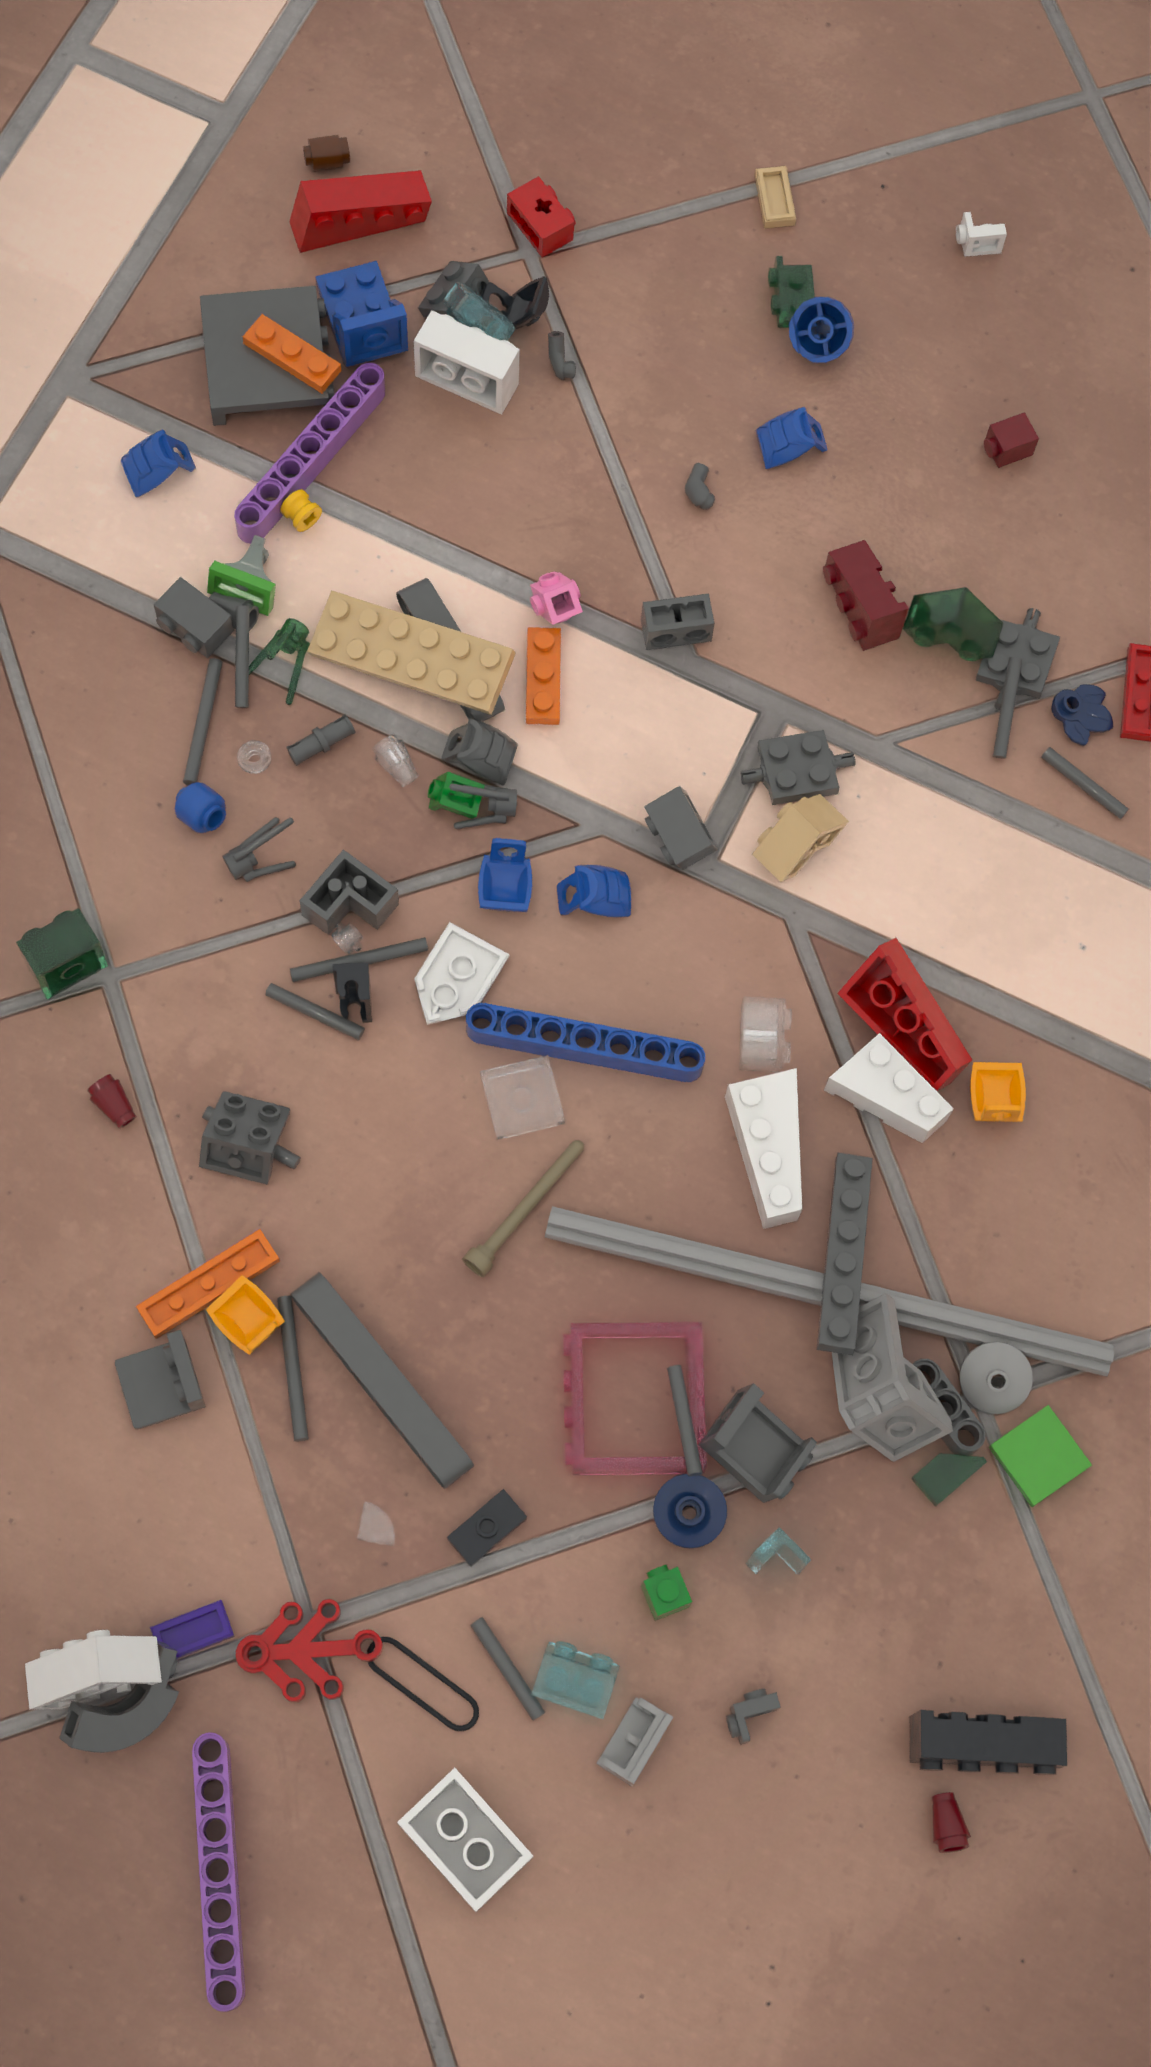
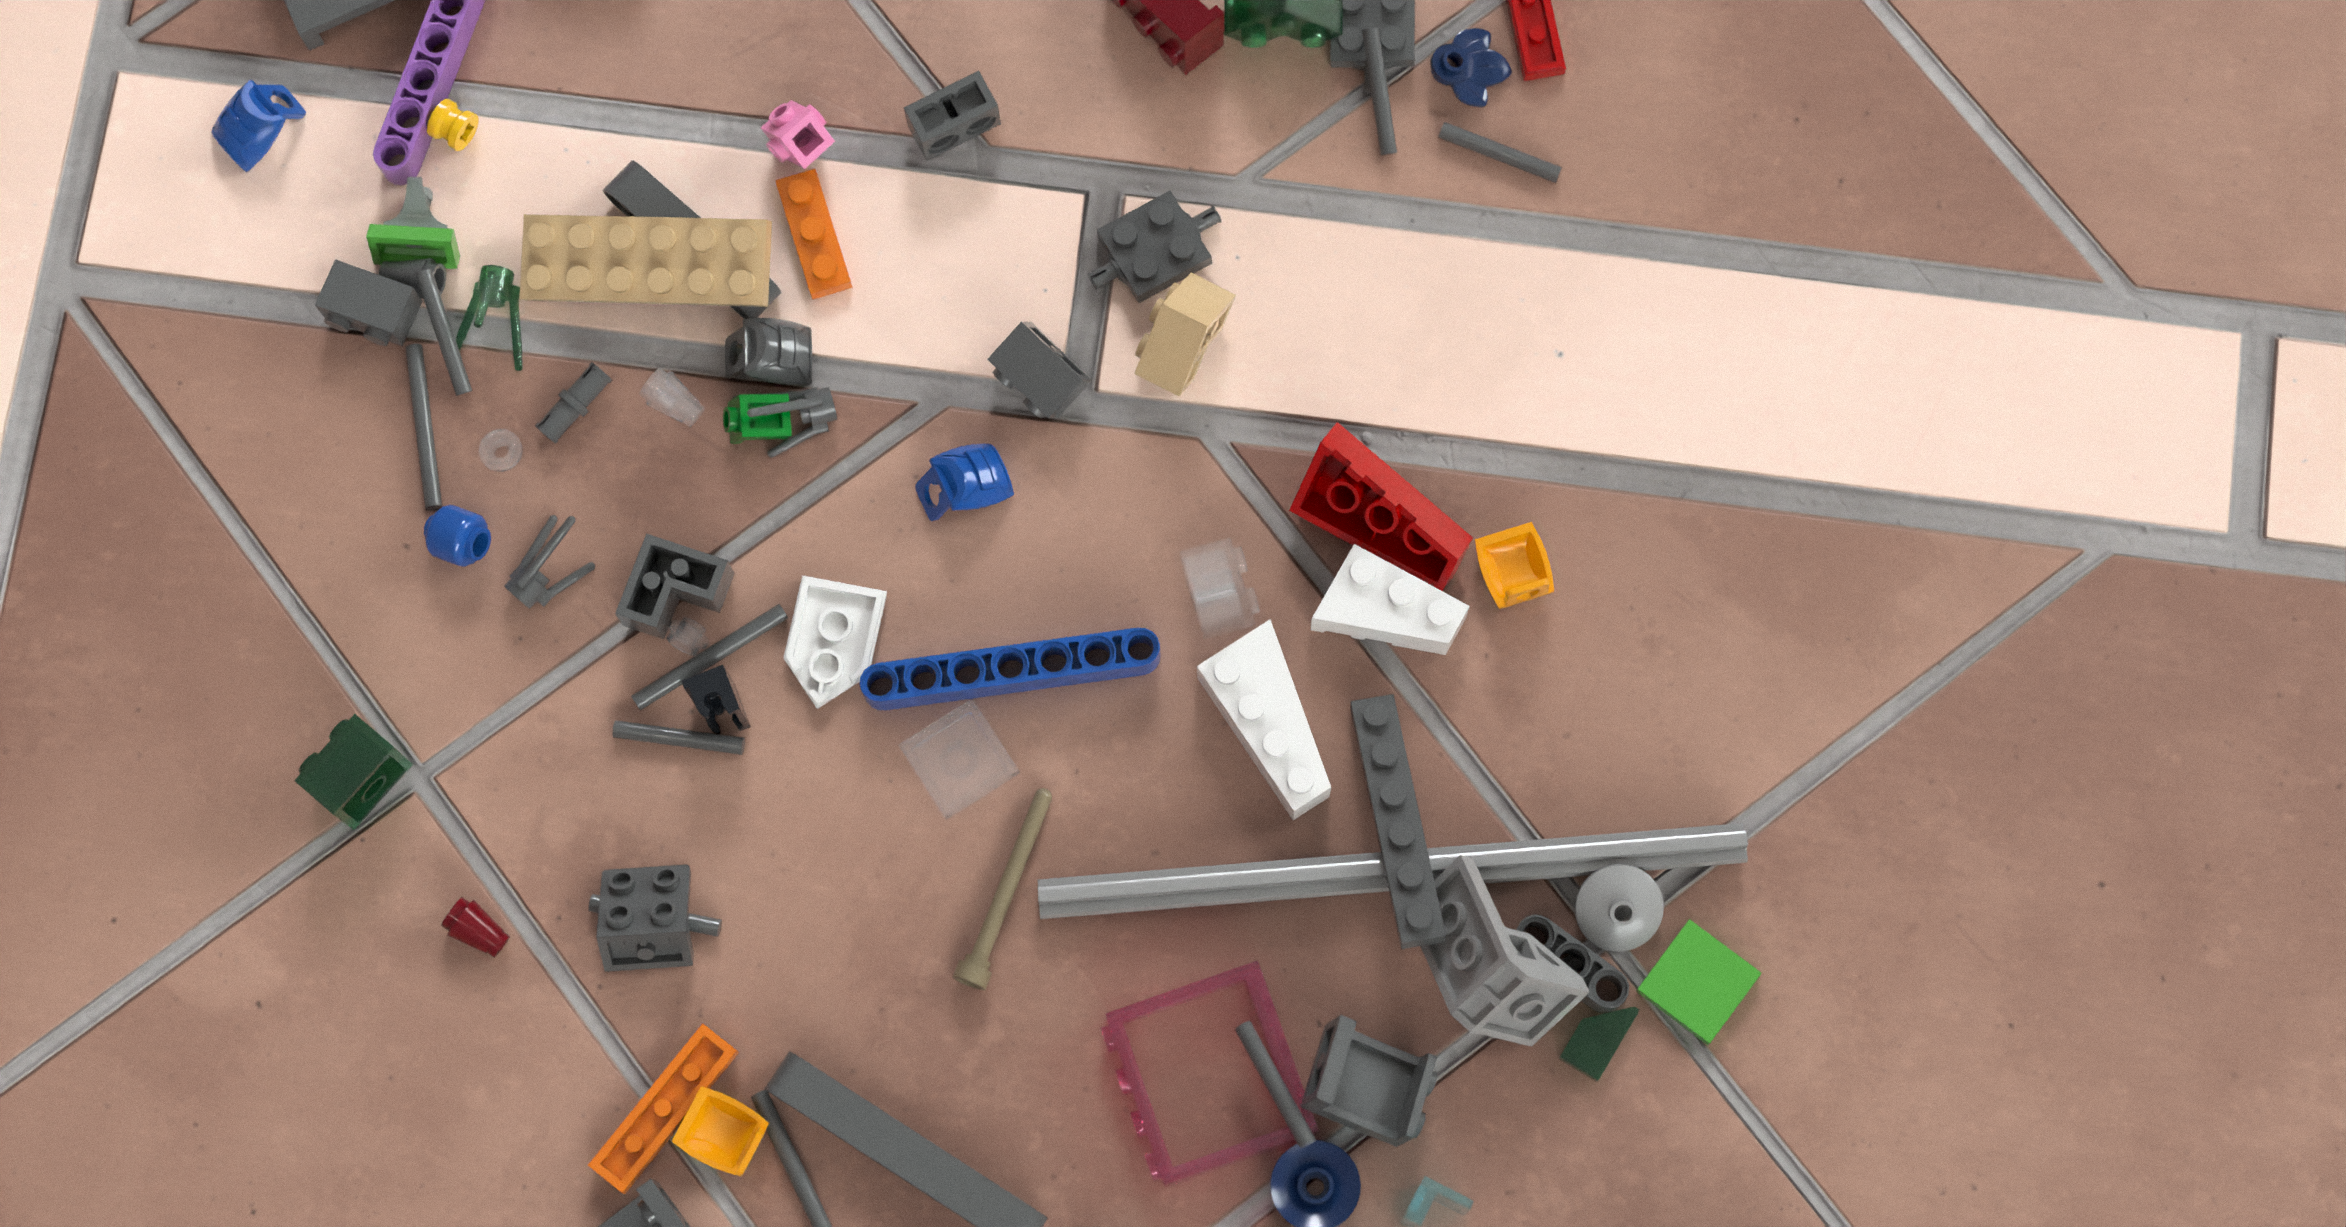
camera: 10 degrees left, 5 degrees up
(505, 880) = (852, 501): blue piece -> none

